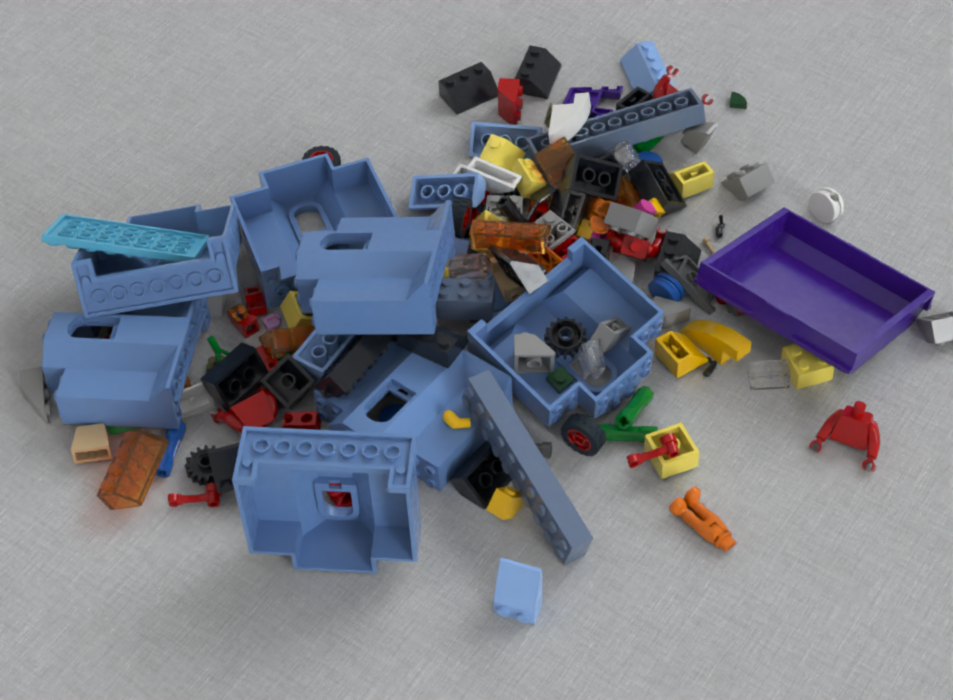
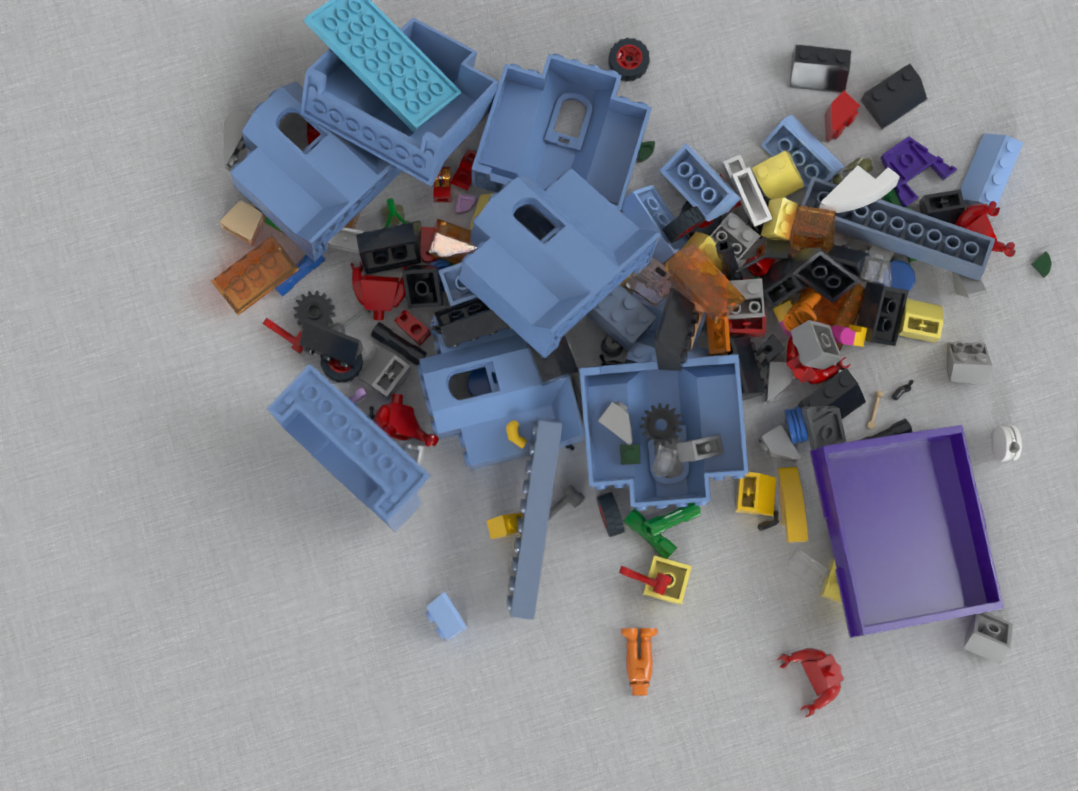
camera: 30 degrees right, 30 degrees up
(480, 476) = (504, 486): black slope -> none

